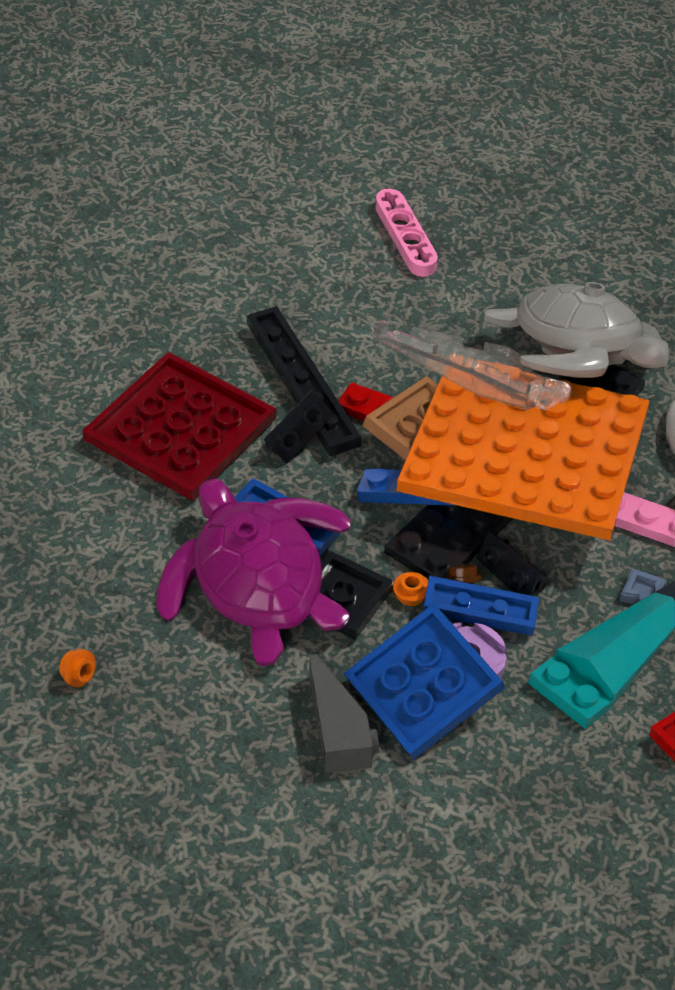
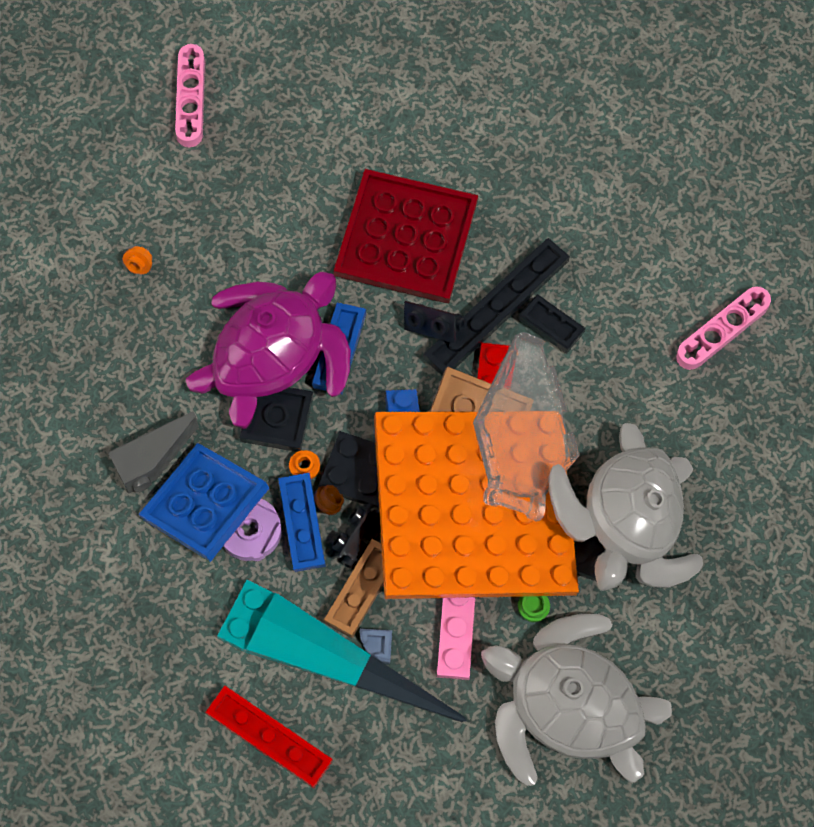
camera: 70 degrees right, 20 degrees up
(341, 345) = (551, 323): none -> black plate
(576, 578) = (358, 592): none -> medium nougat plate
(647, 451) = (534, 608): none -> bright green plate

